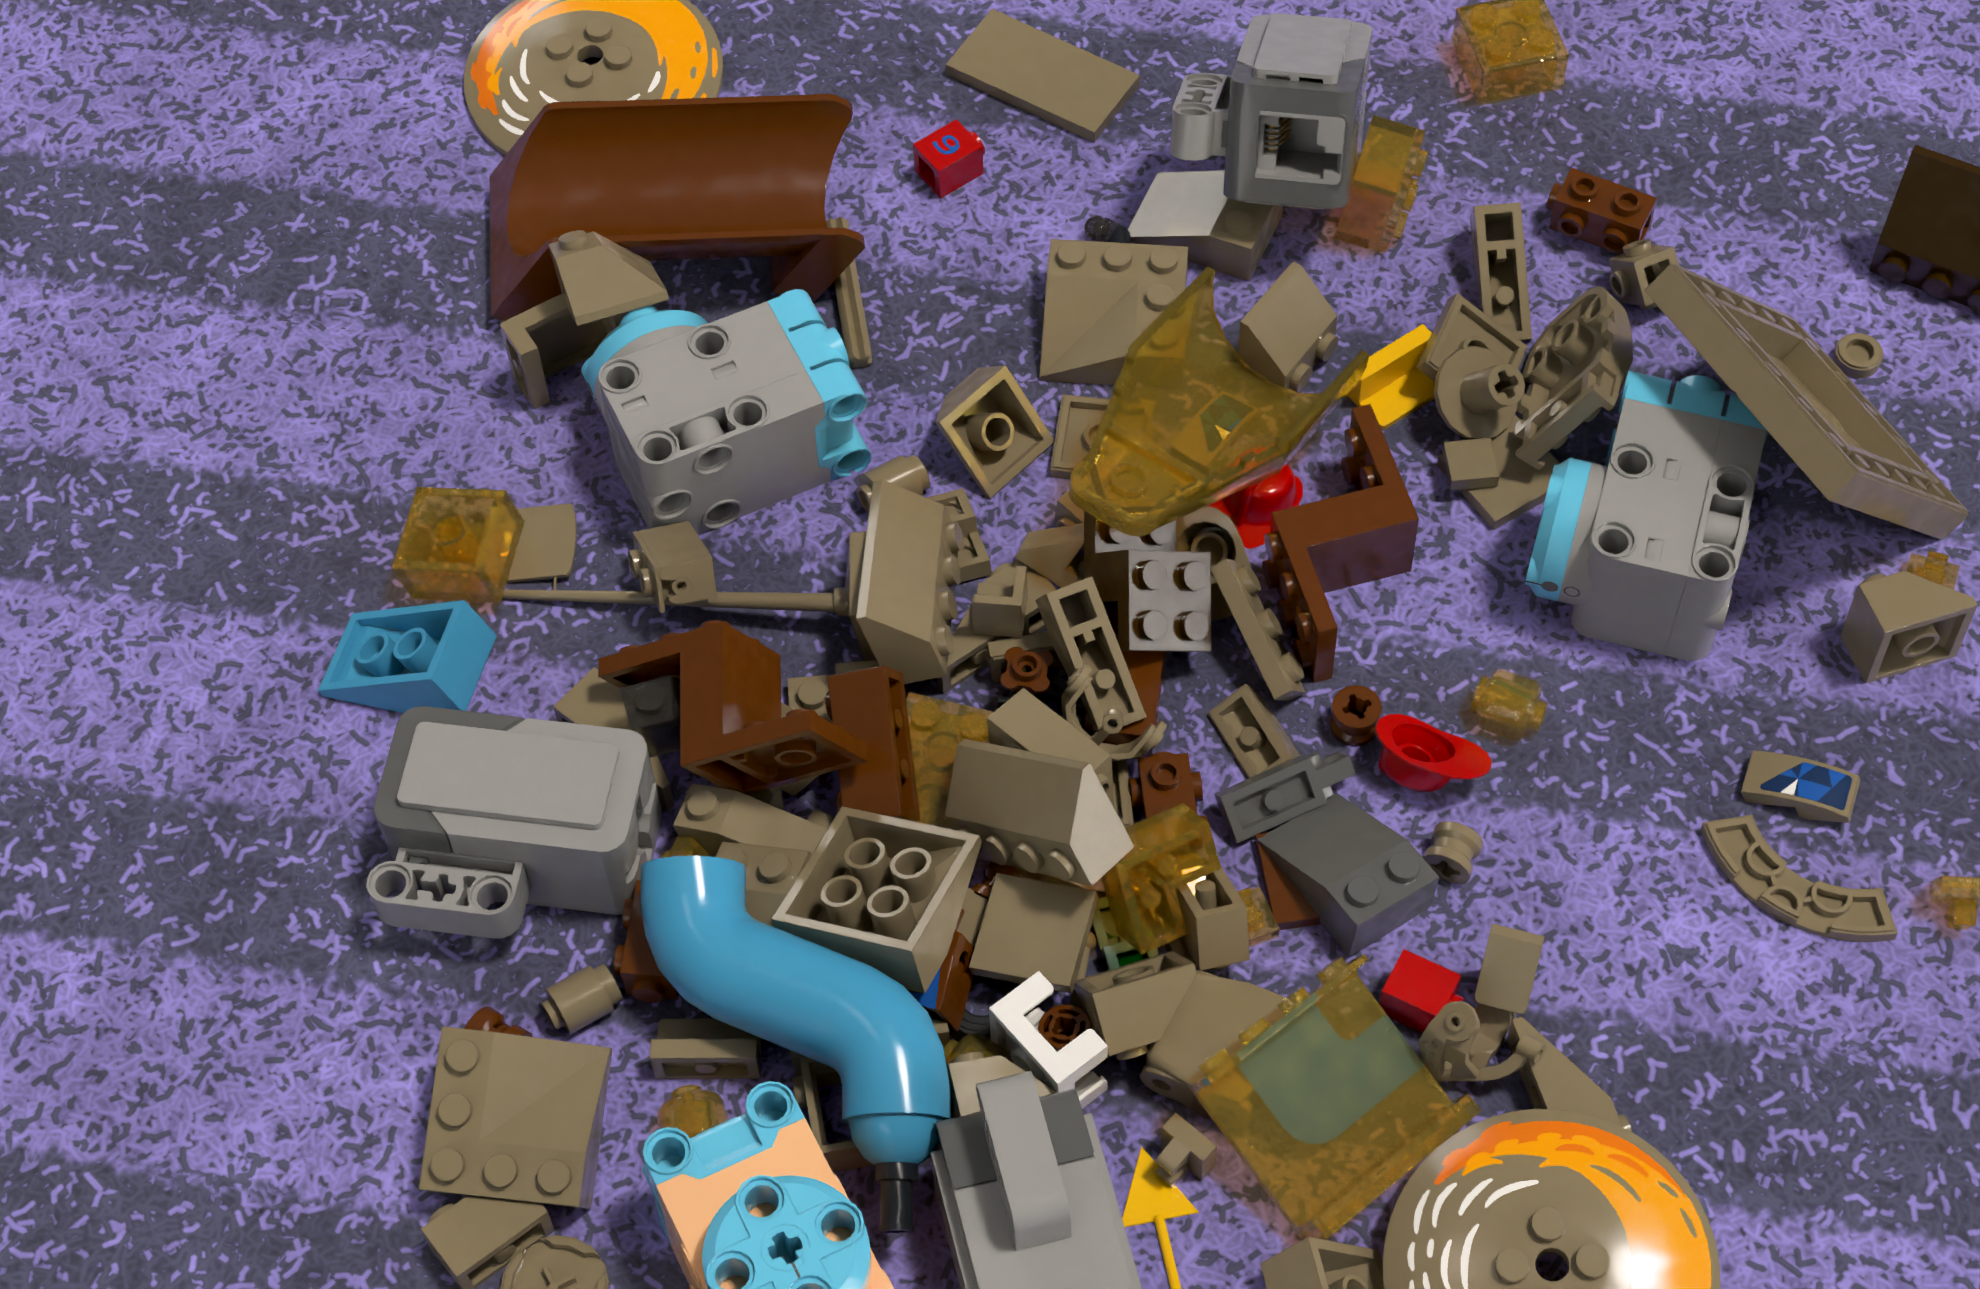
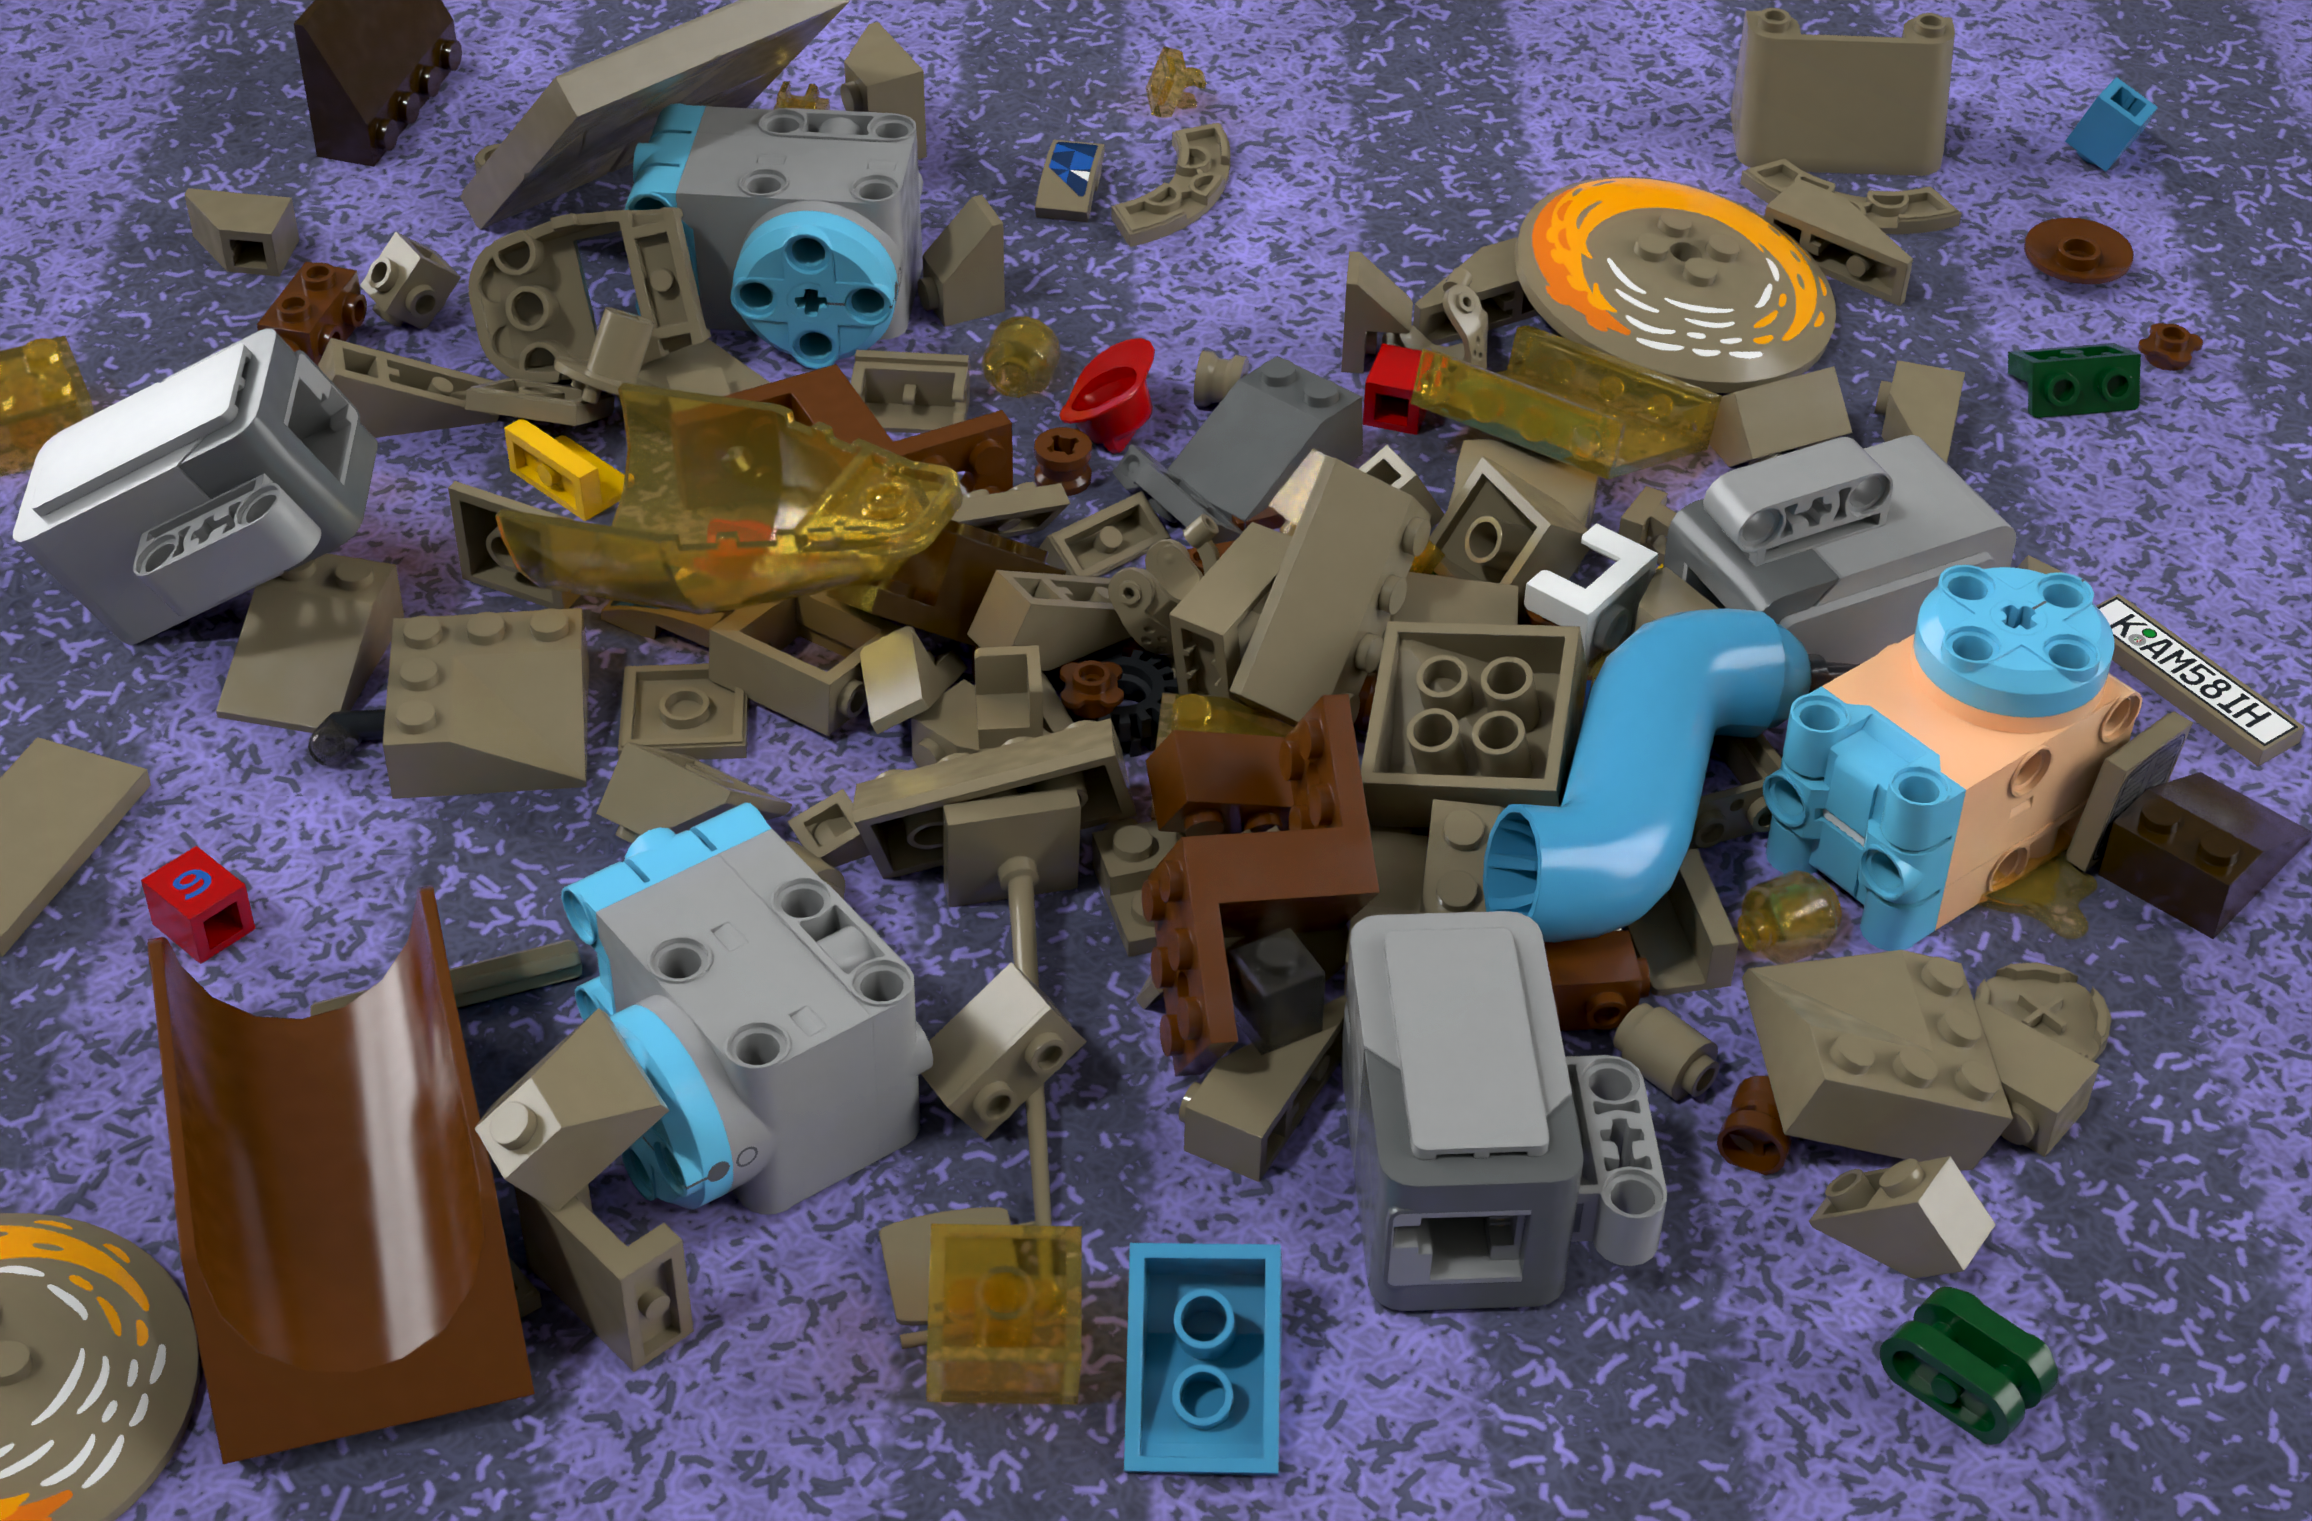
camera: 105 degrees left, 15 degrees down
(251, 1110) = (1969, 1364): none -> dark green brick
(378, 1109) = (1907, 1216): none -> dark tan slope
(1463, 616) = (913, 389): none -> dark tan hinge
(1625, 669) = (965, 266): none -> dark tan slope
(1744, 171) = (244, 229): none -> dark tan slope

